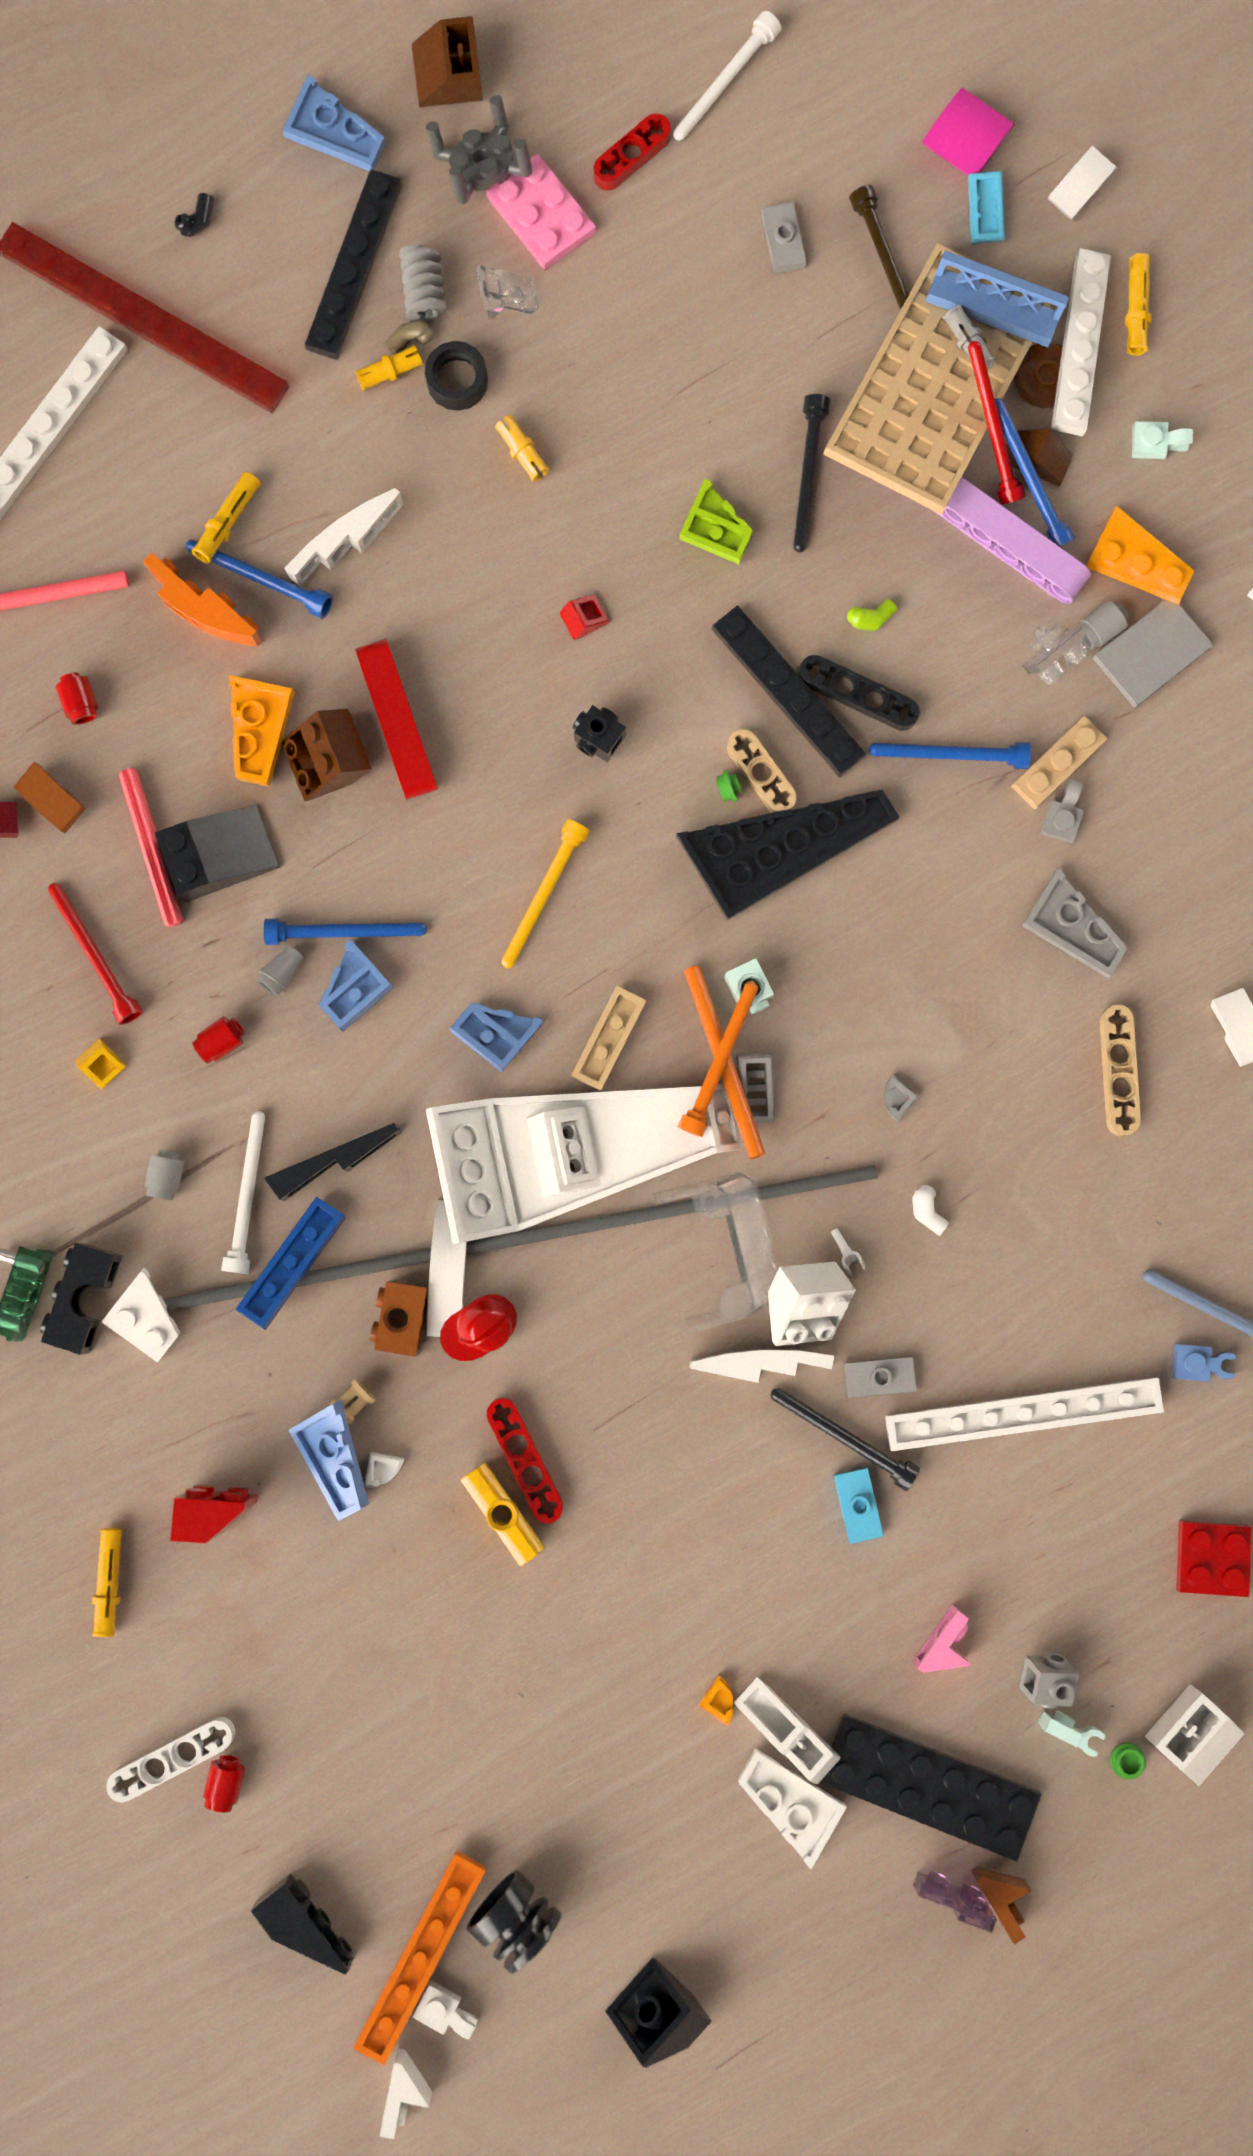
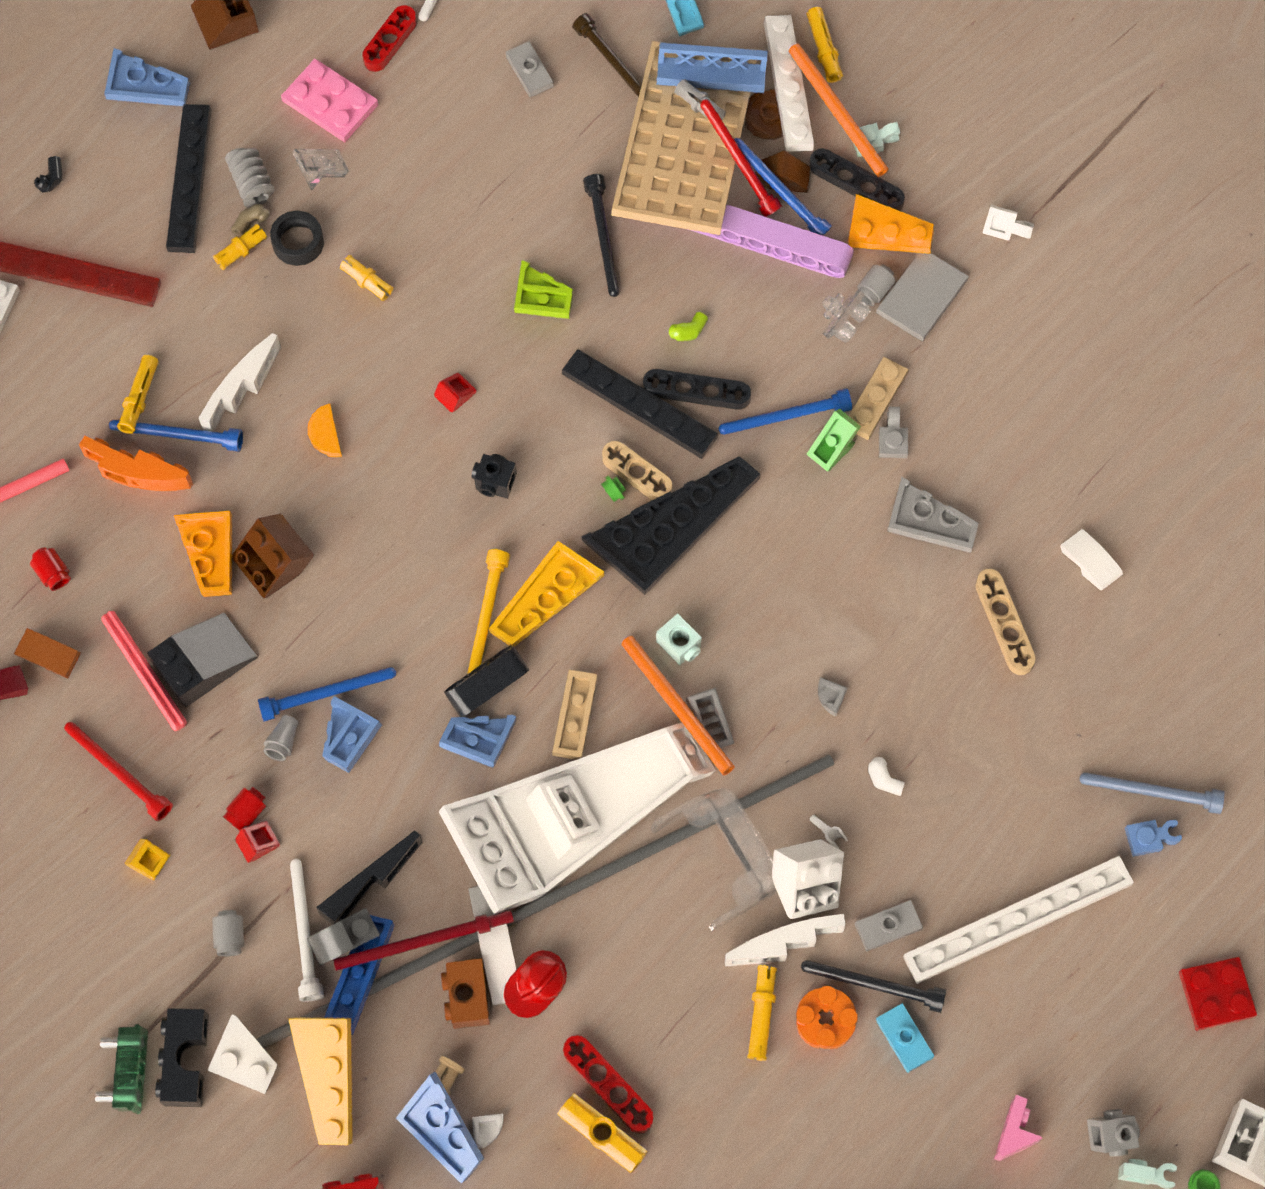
camera: 15 degrees left, 15 degrees down
(224, 1078) = (256, 841): none -> red slope
(227, 1360) = (326, 1069): none -> yellow wing
(277, 1221) = (343, 936): none -> dark grey brick
(396, 719) = (323, 512): red beam -> none
(423, 621) = (323, 432): none -> light orange tile
(437, 1250) = (481, 924): none -> dark red bar
(490, 147) = (278, 63): dark grey plate -> none
(522, 972) = (486, 680): none -> black beam
(620, 885) = (549, 589): none -> yellow wing
(695, 1120) = (667, 756): orange piece -> none
(712, 1433) = (762, 1010): none -> yellow pin
(761, 1452) = (808, 1017): none -> orange plate
(995, 801) = (834, 440): none -> slope
(1127, 484) = (859, 177): none -> black beam
(1128, 393) = (838, 110): none -> orange piece

